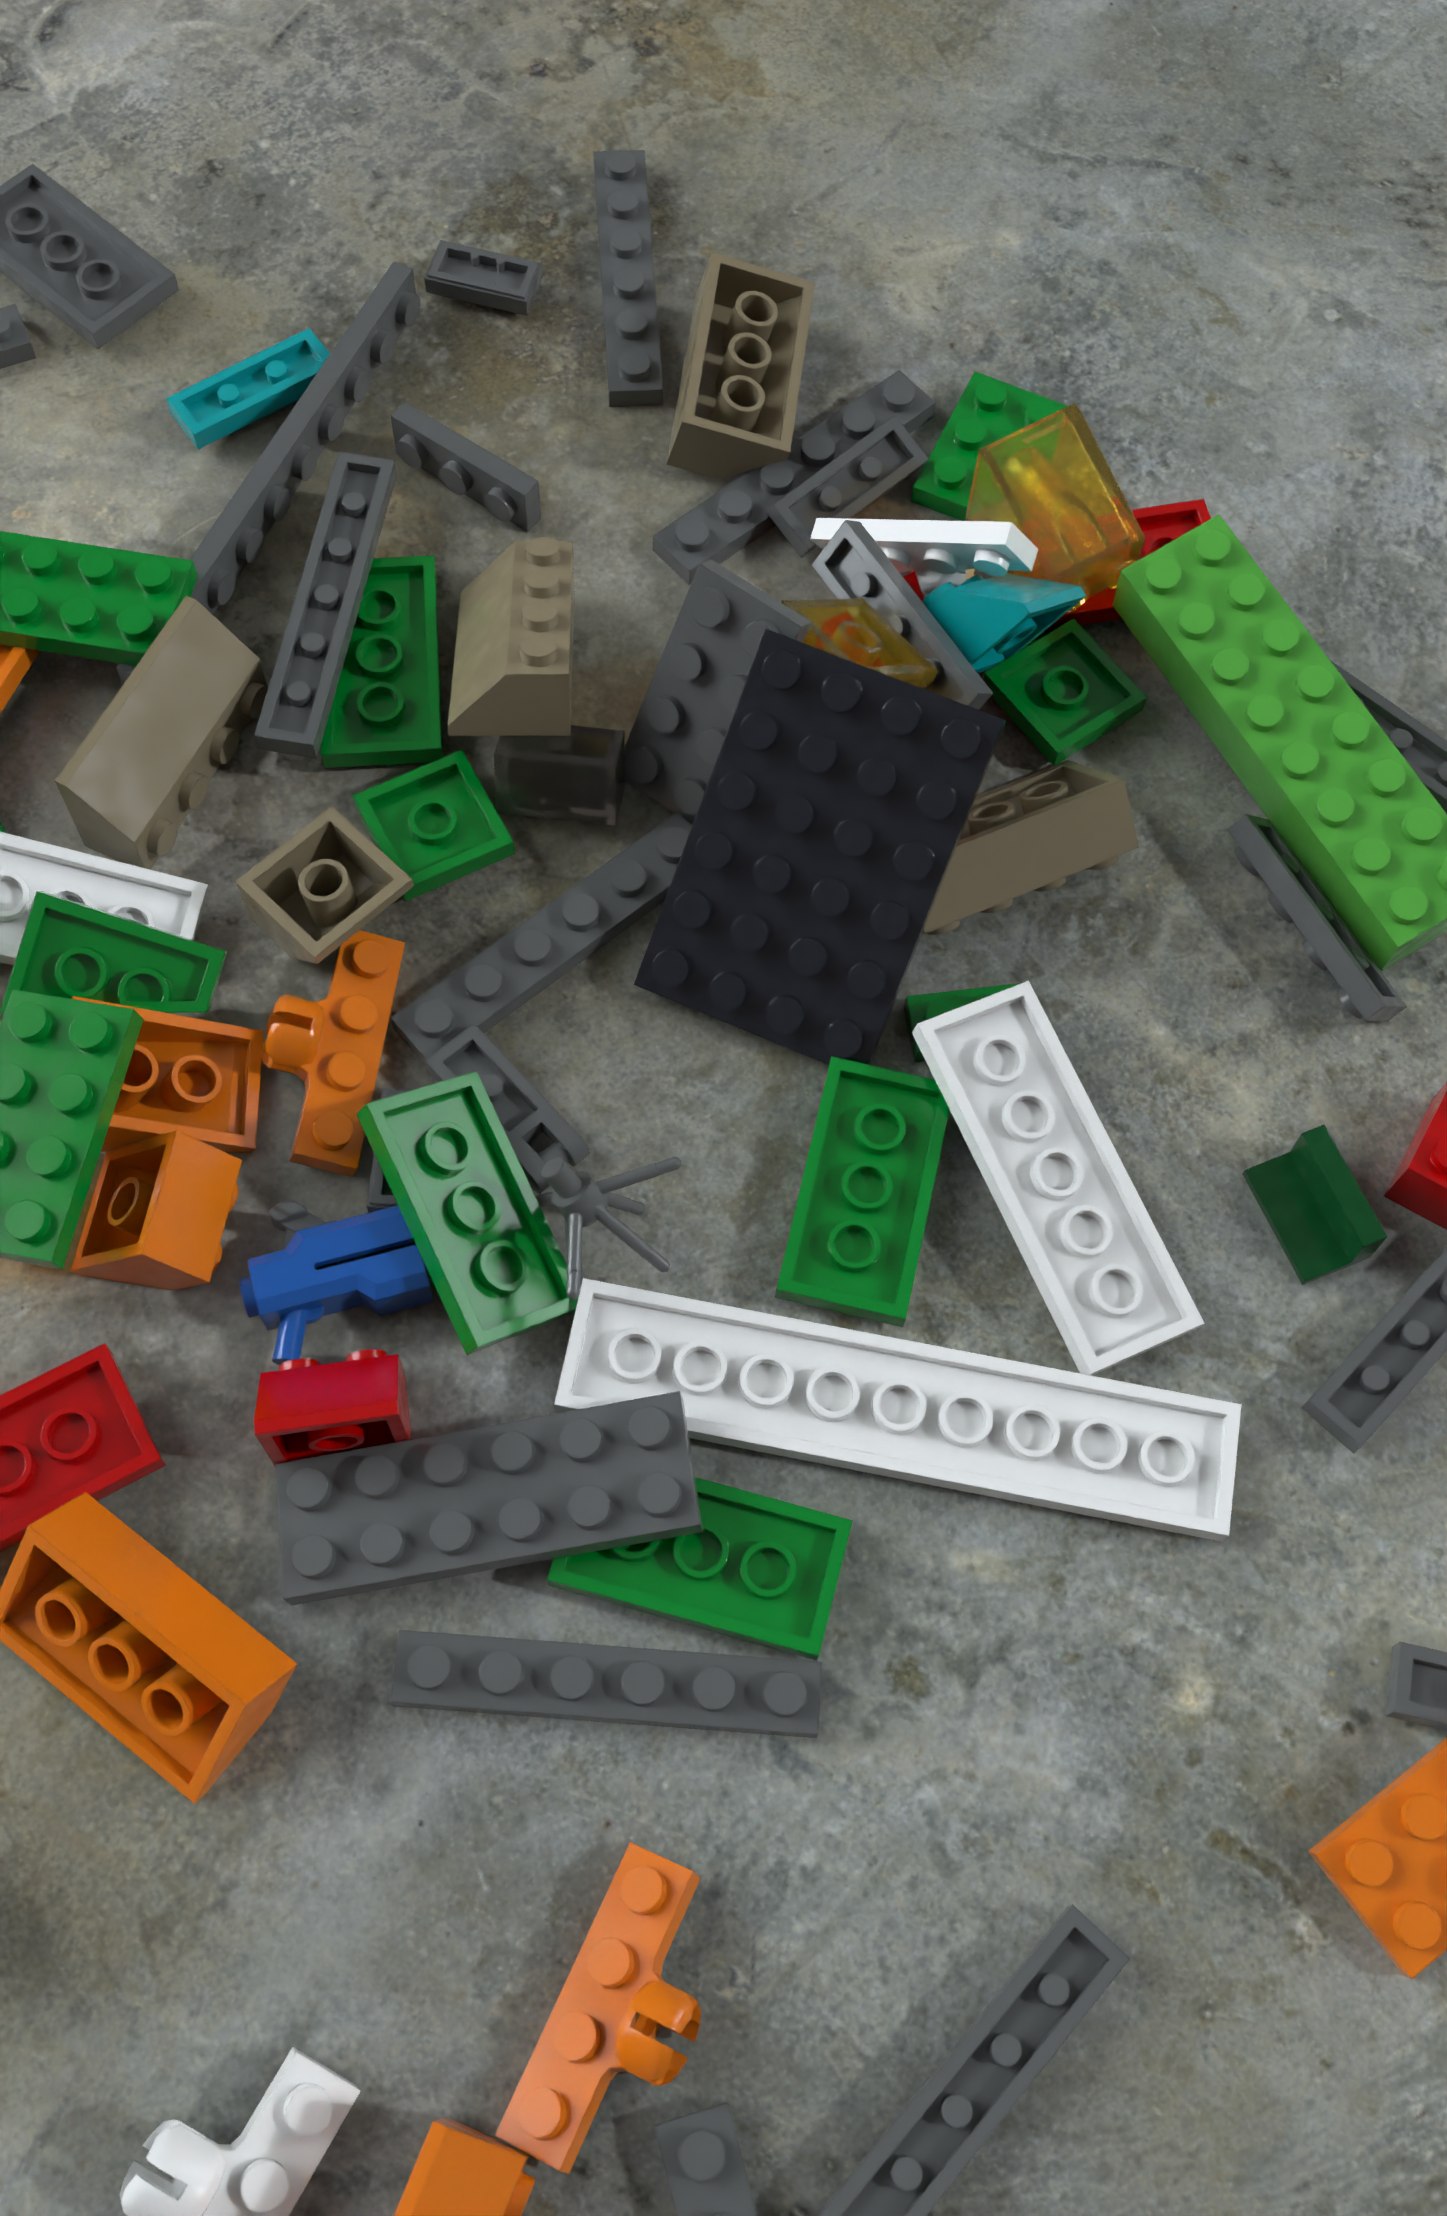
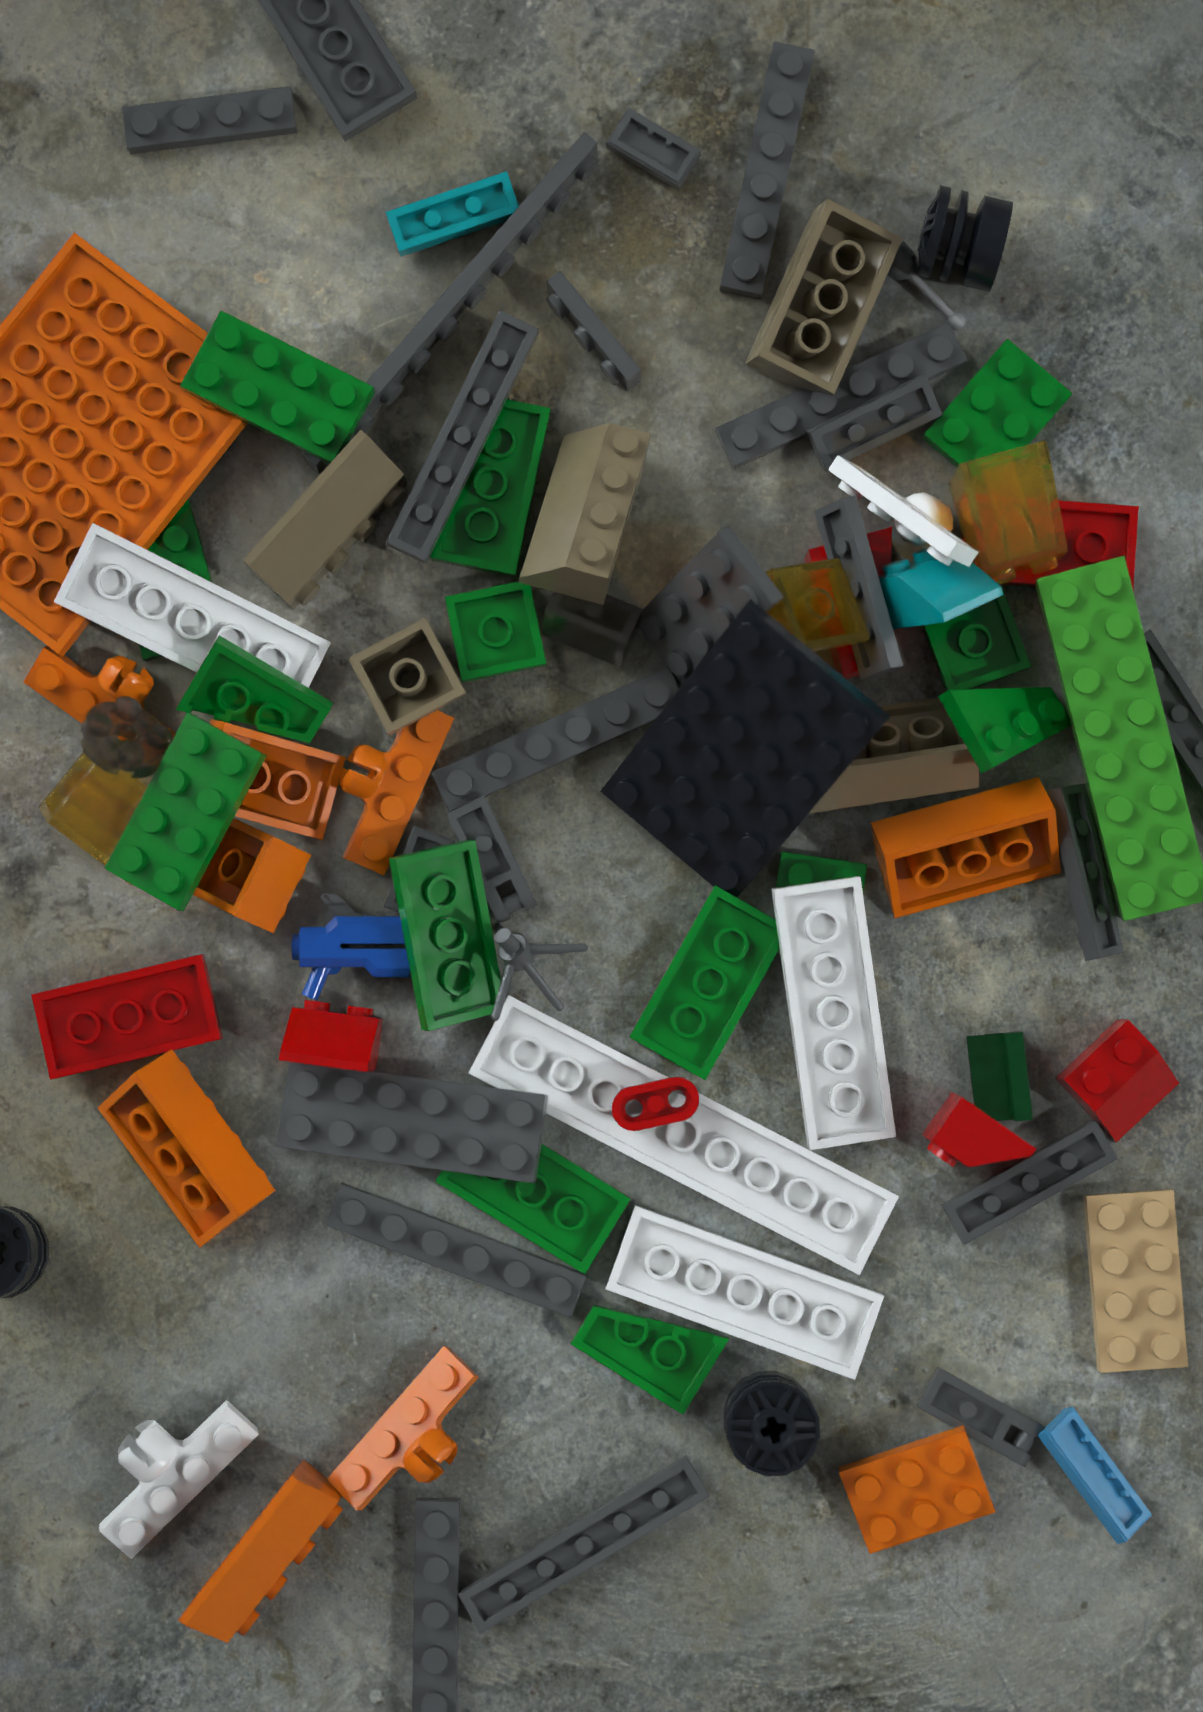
camera: 25 degrees right, 20 degrees up
(825, 329) = (905, 267): none -> hinge
(842, 1363) = (655, 1103): none -> red plate
(888, 270) = (964, 238): none -> black wheel
(962, 1756) = (651, 1353): none -> green wing
(1068, 1615) = (745, 1292): none -> white plate
(1140, 752) = (1003, 720): none -> green wing
(1144, 1811) = (746, 1412): none -> black wheel
(1151, 927) = (967, 847): none -> orange slope
(1314, 1276) = (971, 1136): none -> red slope

